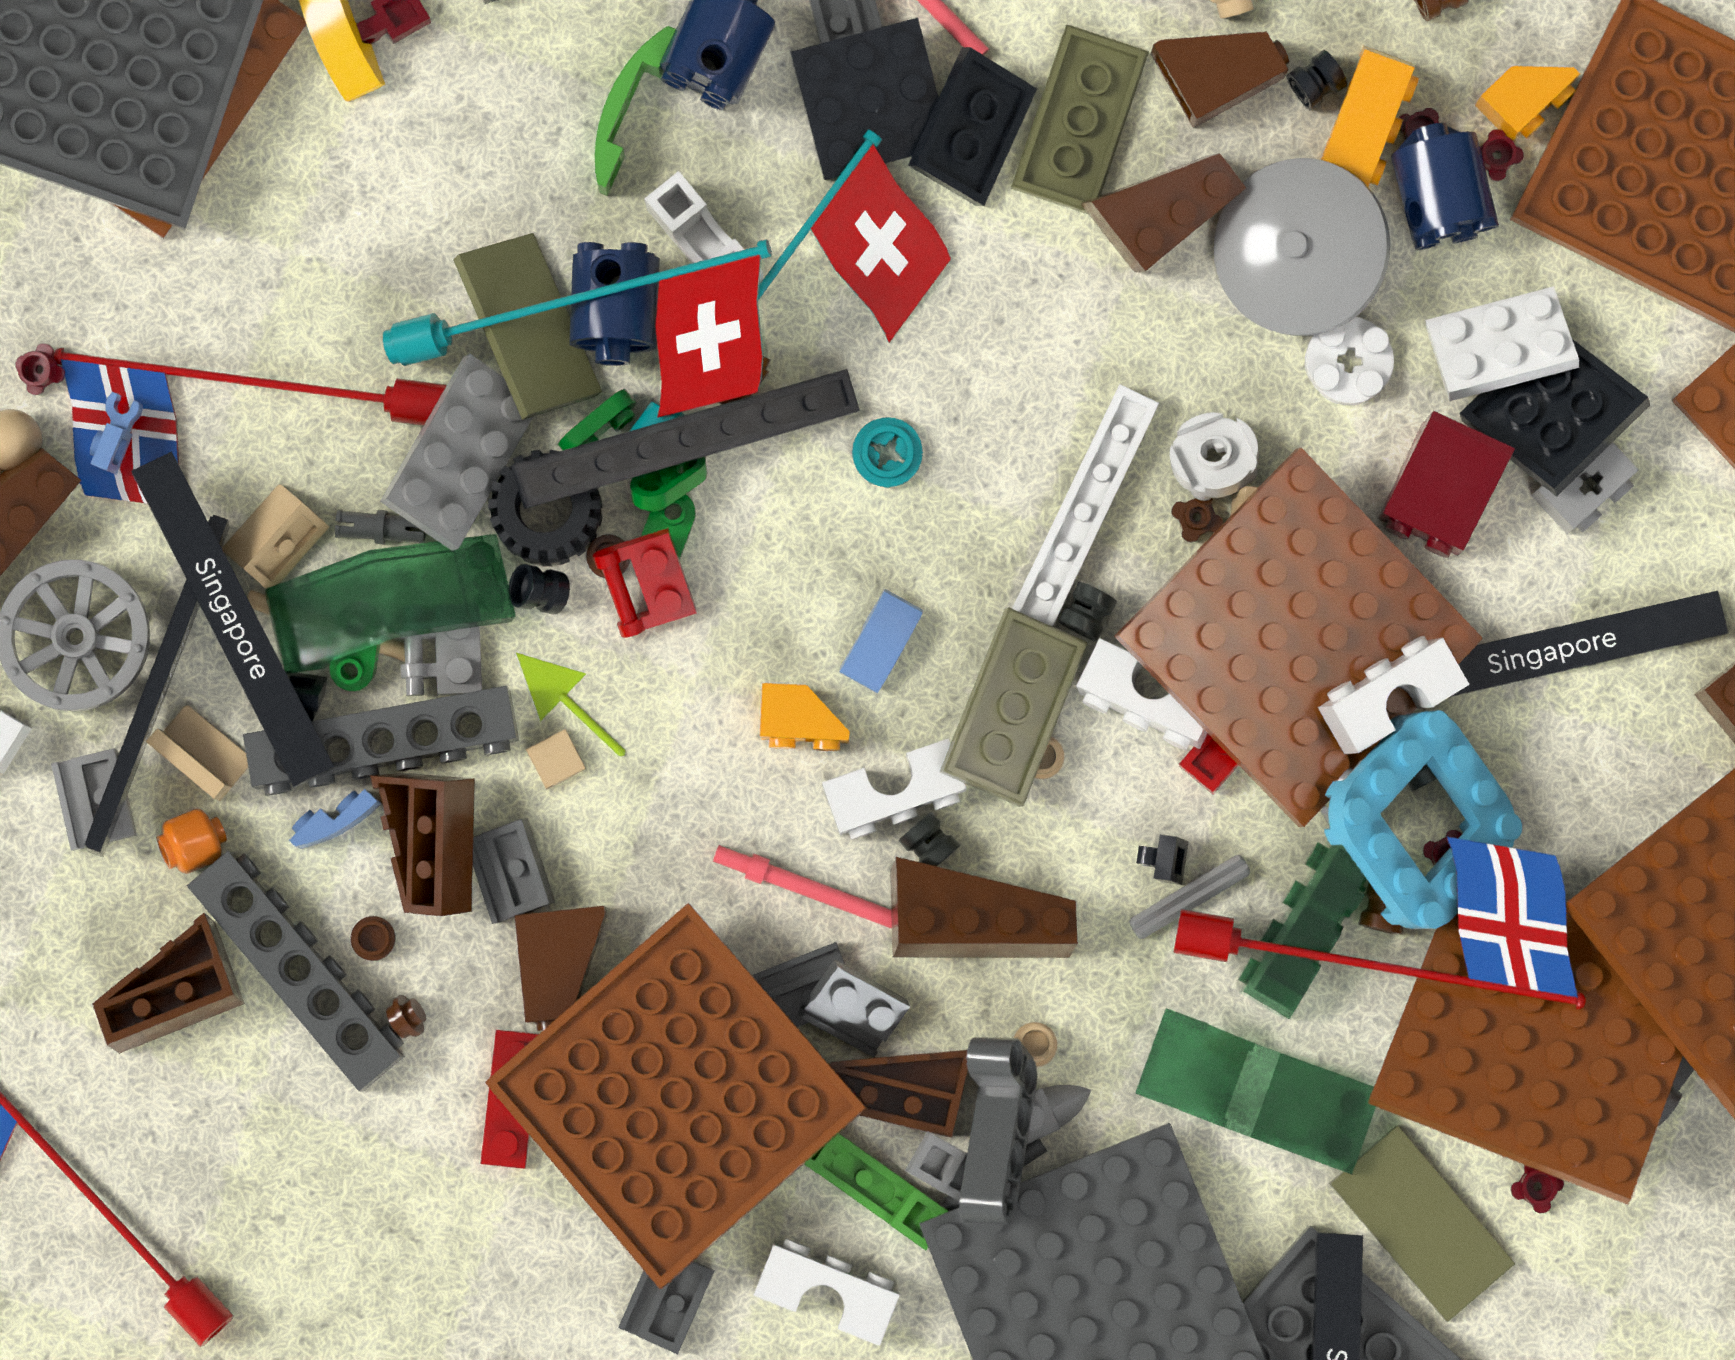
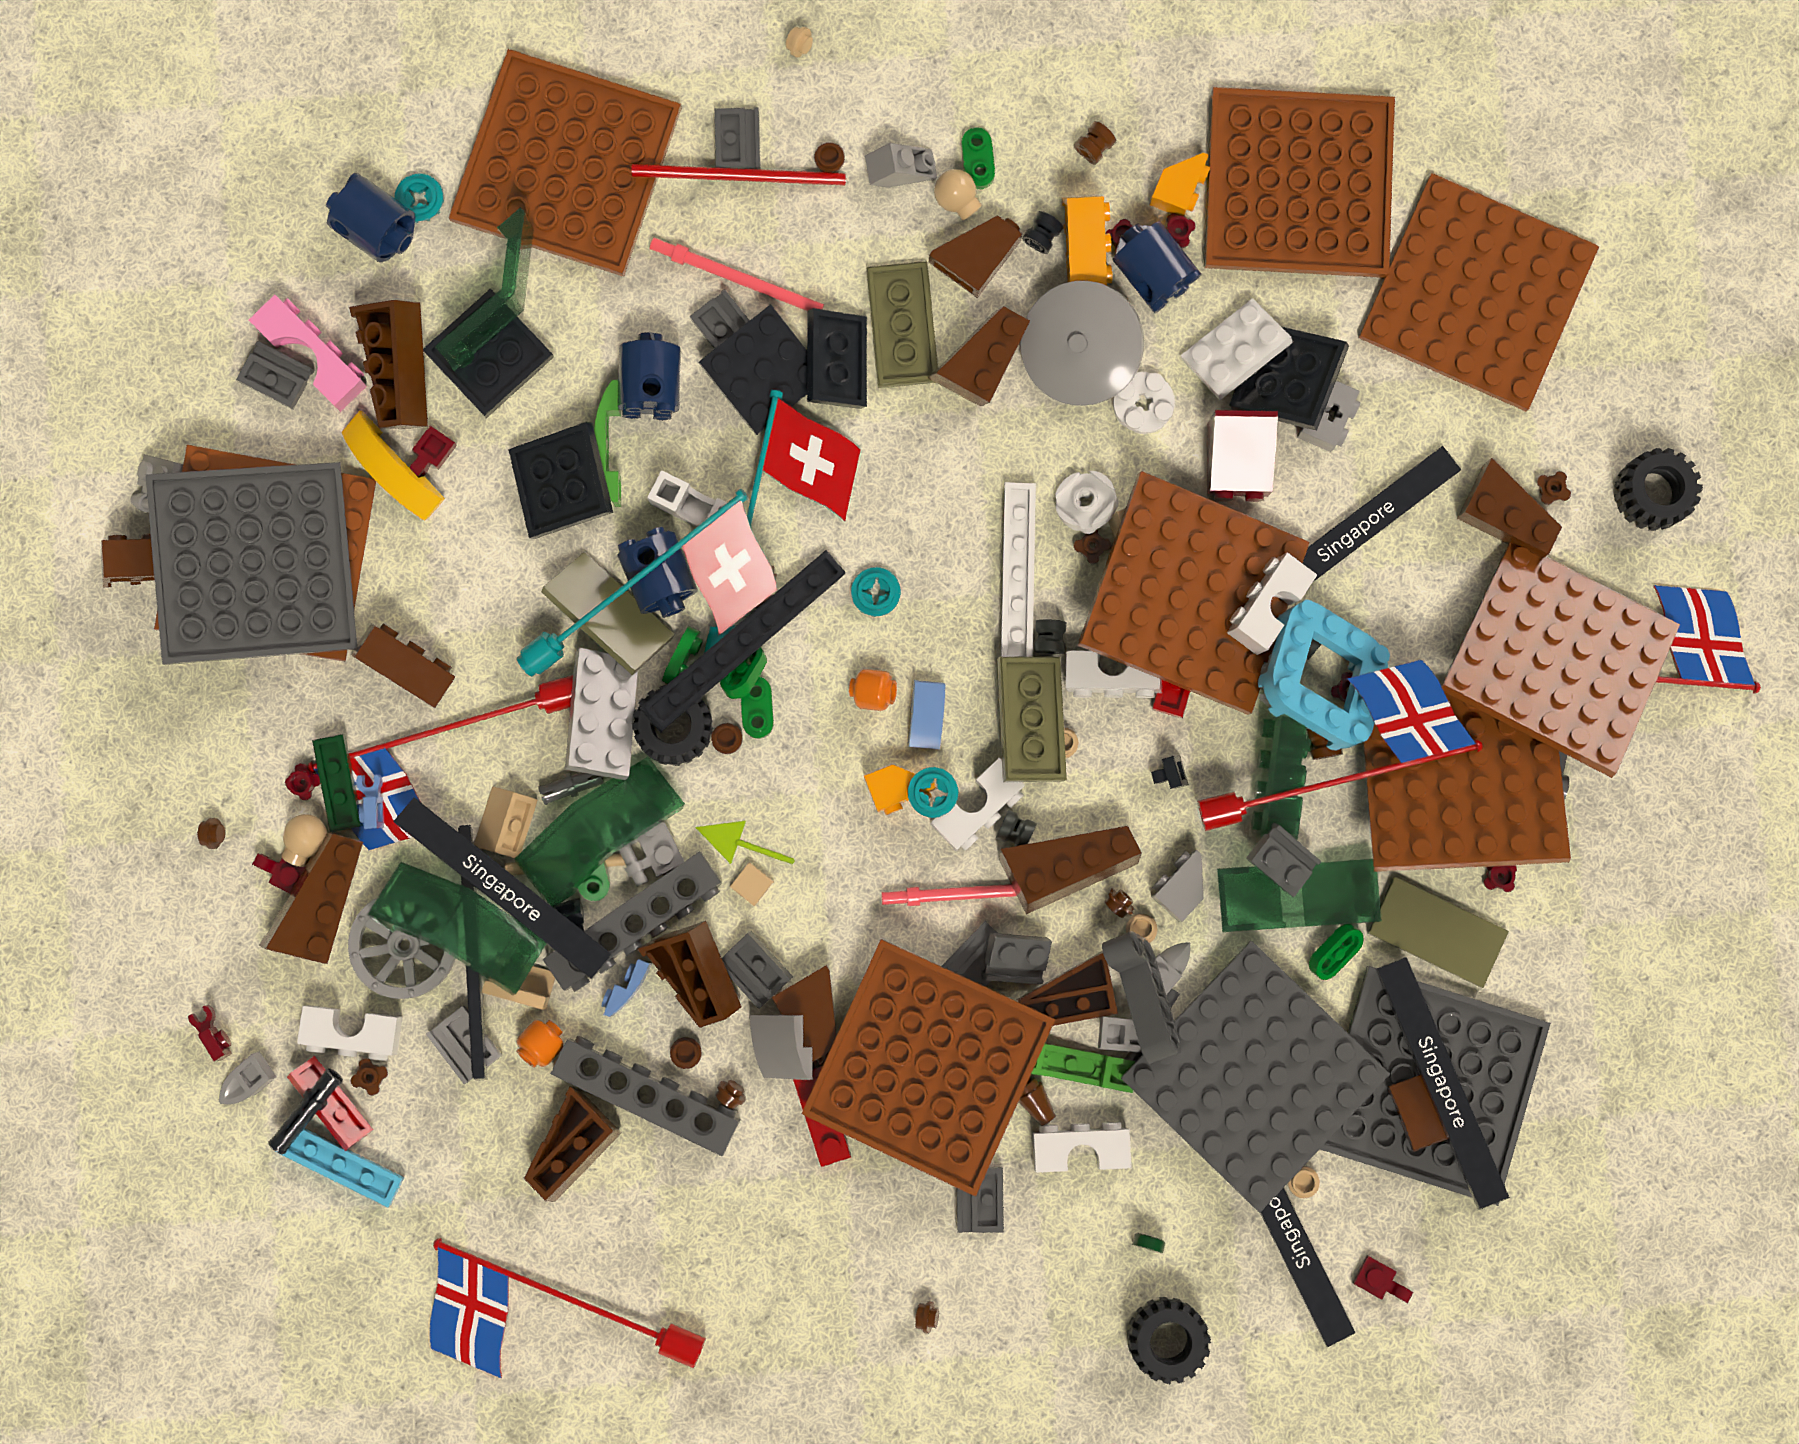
camera: 25 degrees left, 0 degrees up
(83, 389) = (337, 782): none -> dark green tile
(155, 640) = (458, 924): none -> clear green windscreen
(236, 275) = (404, 664): none -> reddish brown wedge
(496, 984) = (780, 1047): none -> light grey slope
(539, 589) = (692, 779): black wheel -> none
(543, 127) = (560, 480): none -> black plate
(659, 578) = (767, 739): red plate -> none
(796, 1205) = (1036, 1102): none -> reddish brown cone
(826, 577) = (873, 690): none -> orange head
(846, 765) = (945, 783): none -> teal gear
(1021, 997) = (1120, 903): none -> reddish brown plate
(1113, 1016) = (1183, 889): none -> light grey slope
(1189, 896) = (1197, 790): light grey axle -> none
(1259, 1036) = (1283, 860): none -> dark grey plate
(1275, 1188) = (1336, 952): none -> green plate

